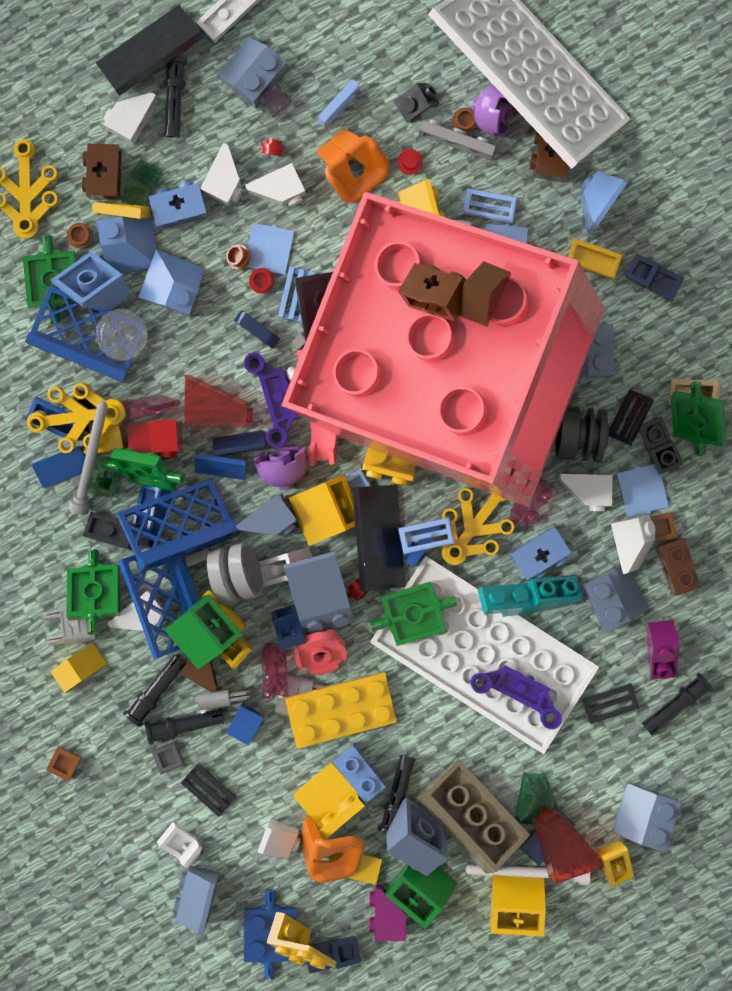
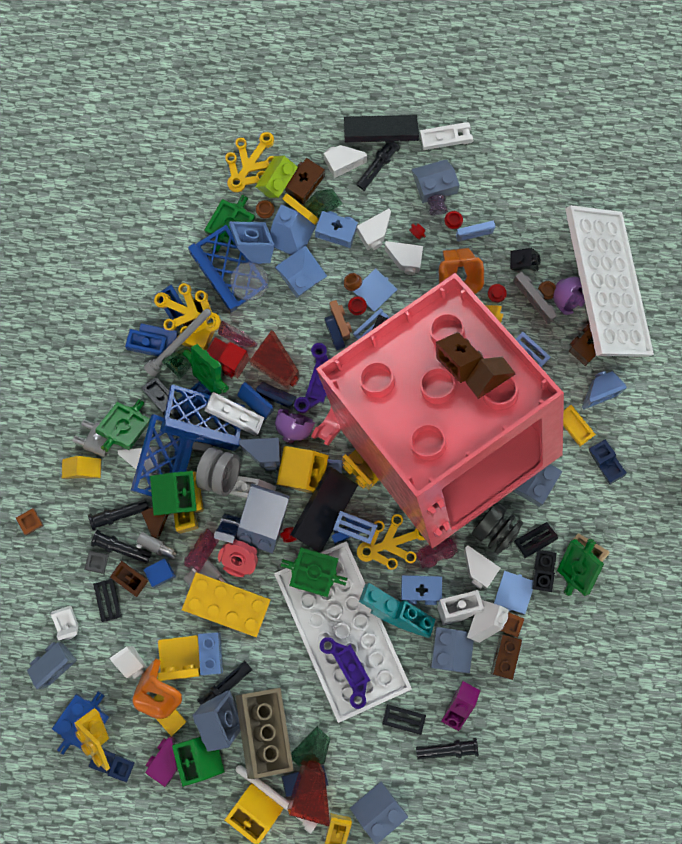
camera: 30 degrees right, 10 degrees down
(52, 481) = (145, 342): none -> blue slope
(68, 189) = (276, 176): none -> lime brick
(208, 497) = (234, 414): none -> white tile
(218, 752) = (129, 578): none -> reddish brown slope
(245, 303) = (338, 312): none -> nougat plate
(305, 106) = (453, 220): none -> red plate
(595, 546) = (459, 607): none -> white slope

